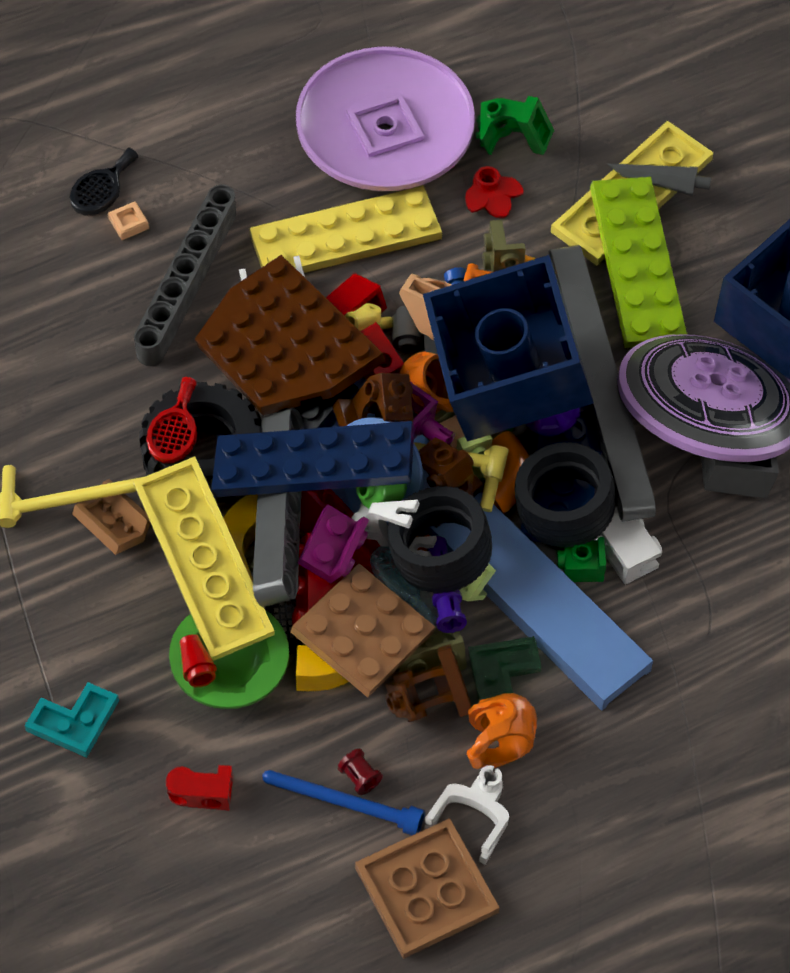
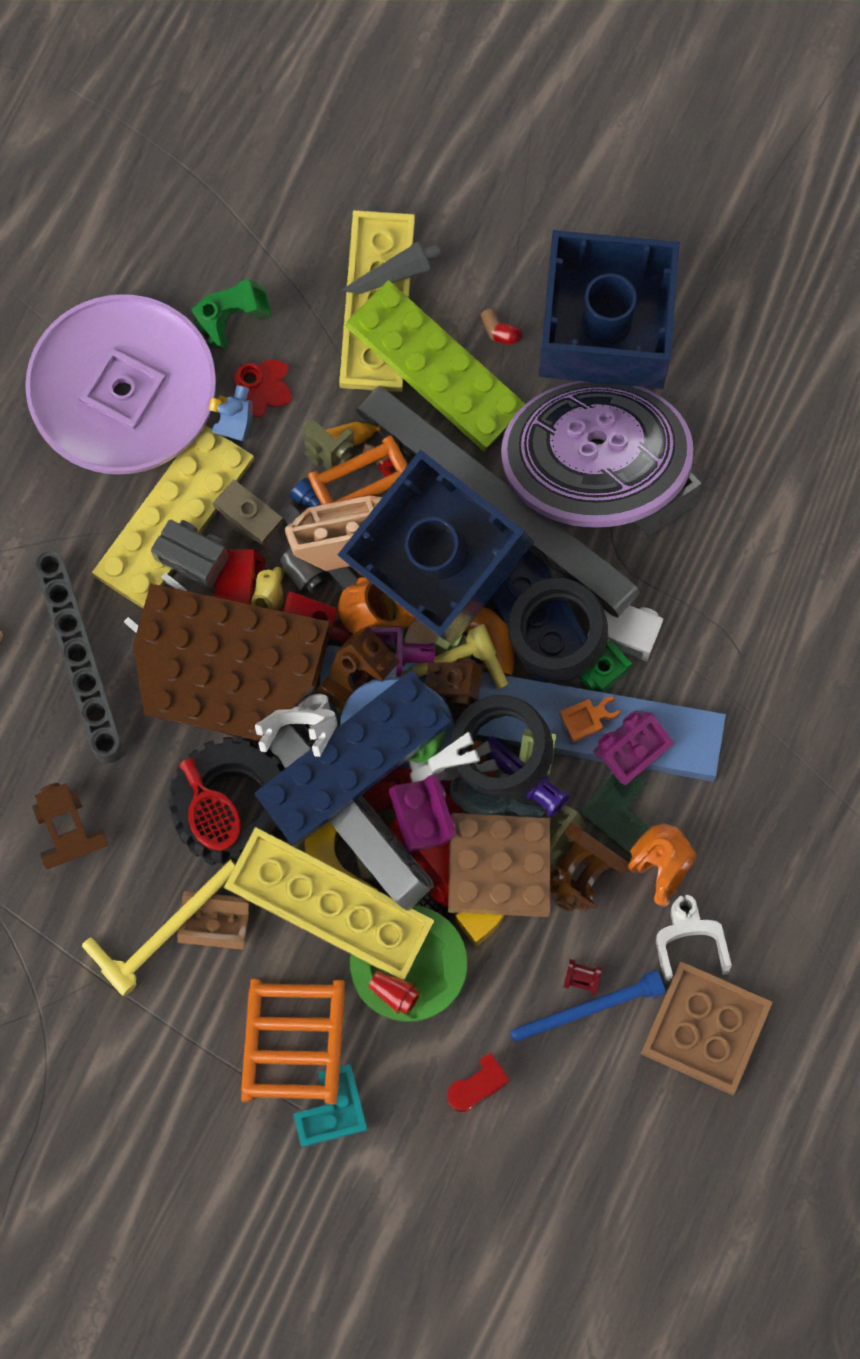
camera: 40 degrees left, 15 degrees up
(62, 389) = (55, 801): none -> reddish brown tile
(103, 676) = (331, 1058): none -> orange bar
(313, 412) = (312, 711): none -> white piece
(330, 254) = (190, 552): none -> dark grey brick
(397, 258) = (247, 513): none -> dark tan brick
(451, 191) = (235, 414): none -> medium blue piece
(529, 577) = (584, 719): none -> orange plate
(552, 626) = (633, 745): none -> magenta bracket
(710, 272) = (498, 331): none -> arm

